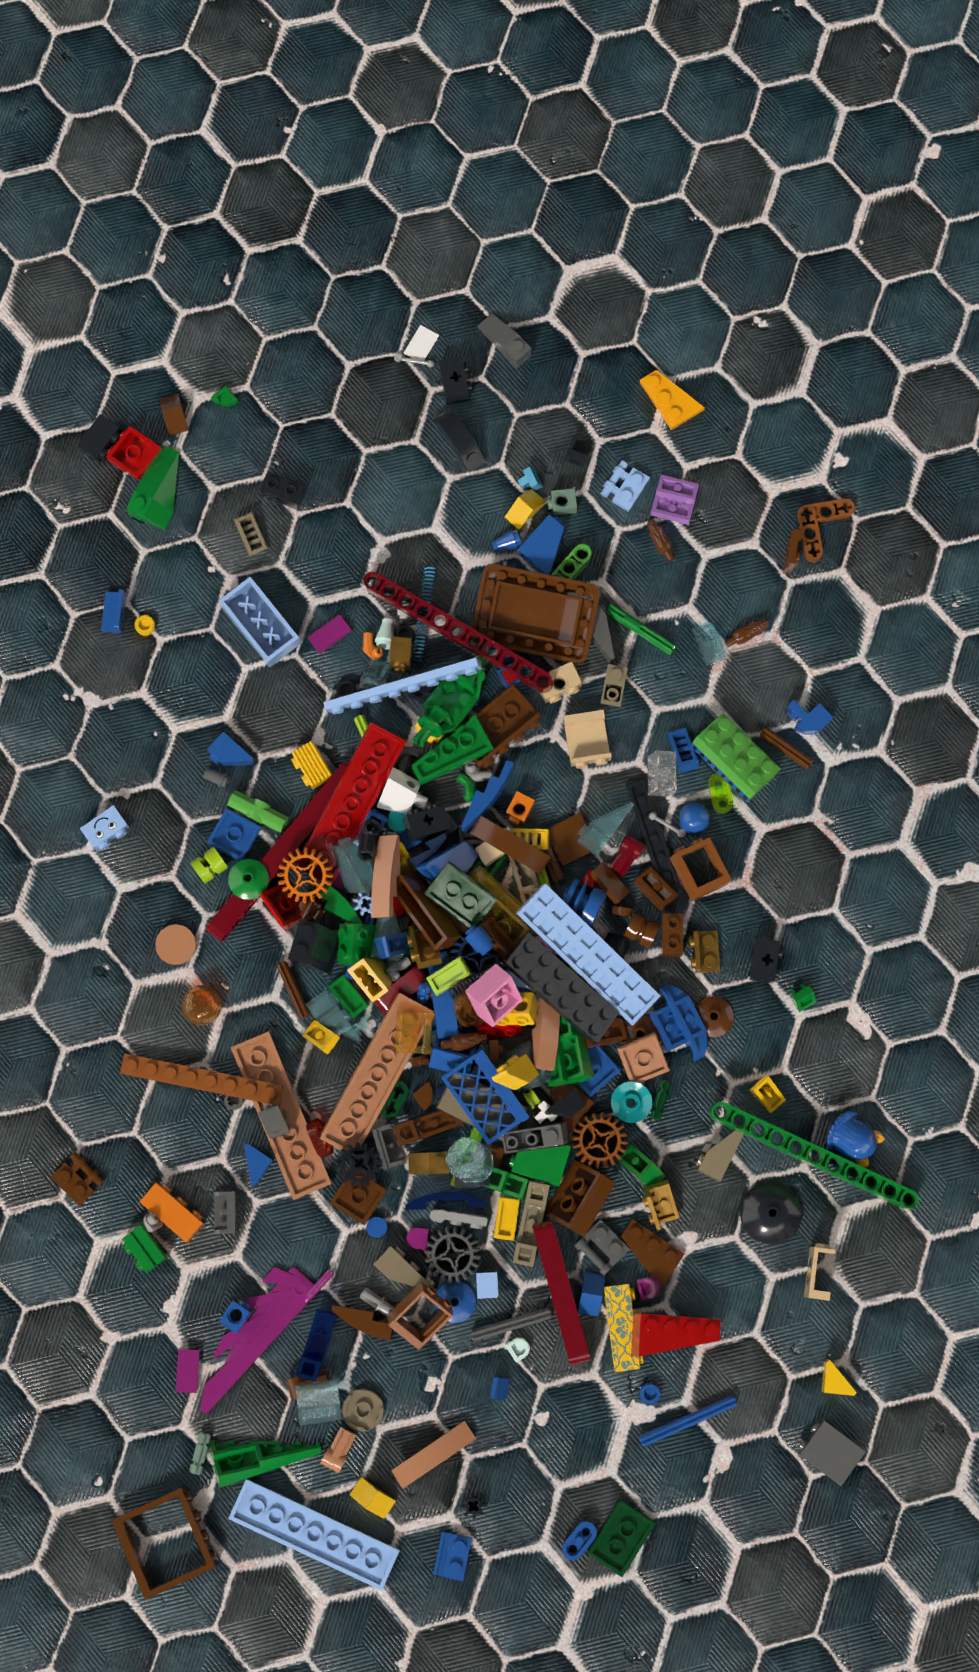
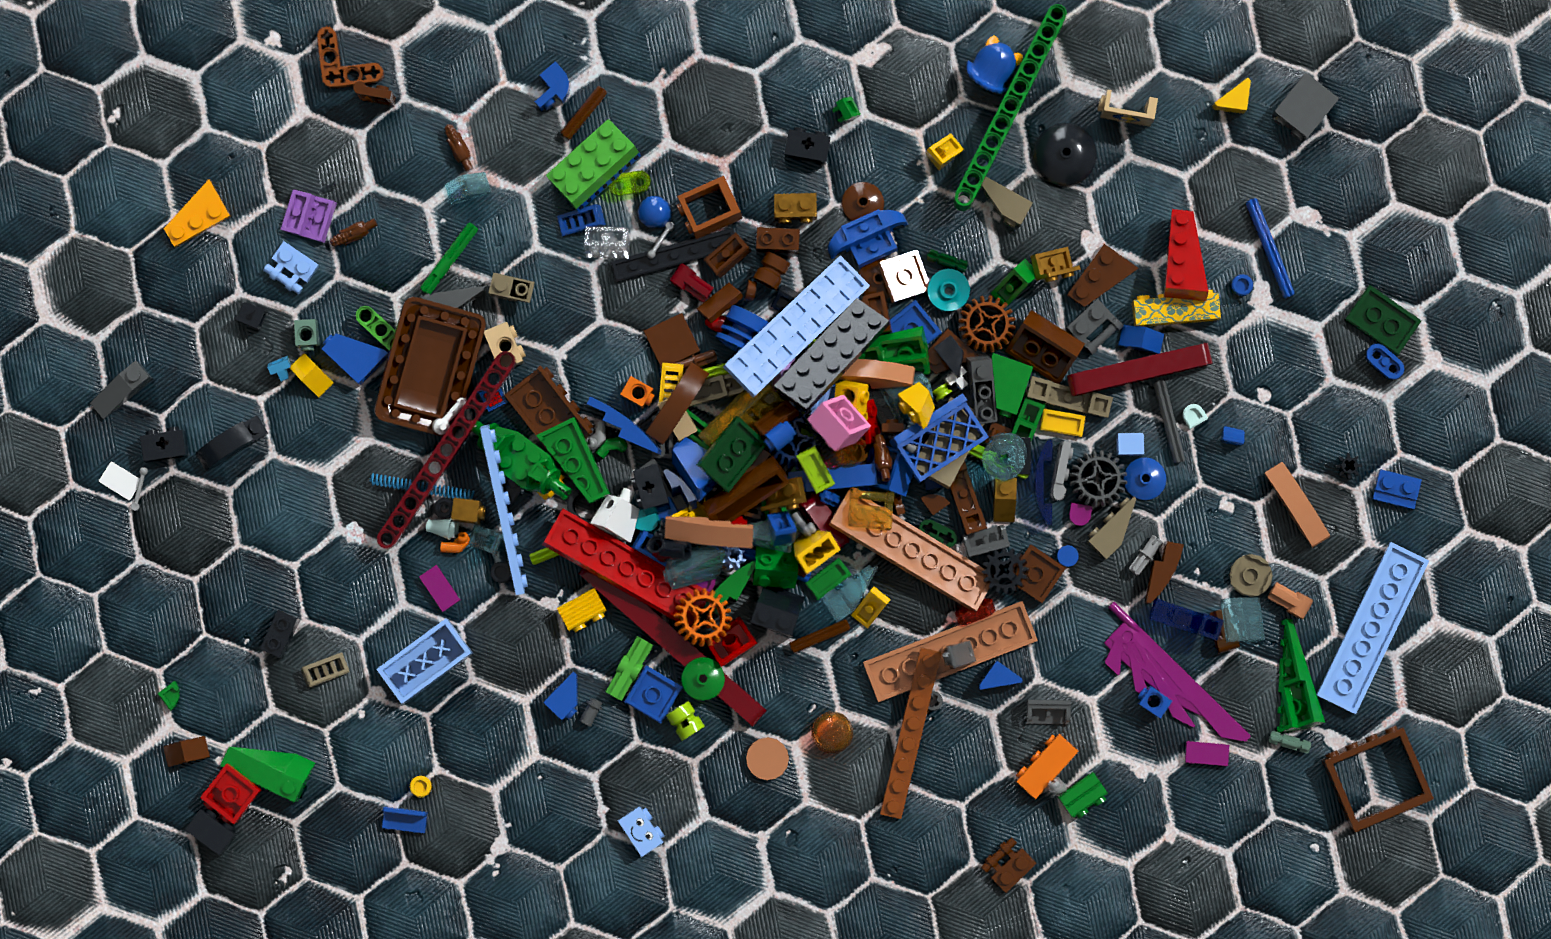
camera: 90 degrees left, 5 degrees up
(311, 910) = (738, 613): reddish brown gear -> none
(372, 1498) = (1338, 568): yellow slope -> none
(406, 1330) = (1180, 512): dark orange window -> none
(482, 627) = (441, 425): none -> white piece
(508, 541) = (347, 394): blue cone -> none
(587, 739) = (566, 319): tan panel -> none
(601, 829) = (667, 310): clear light blue slope -> none
(648, 1288) = (1137, 281): magenta tile -> none

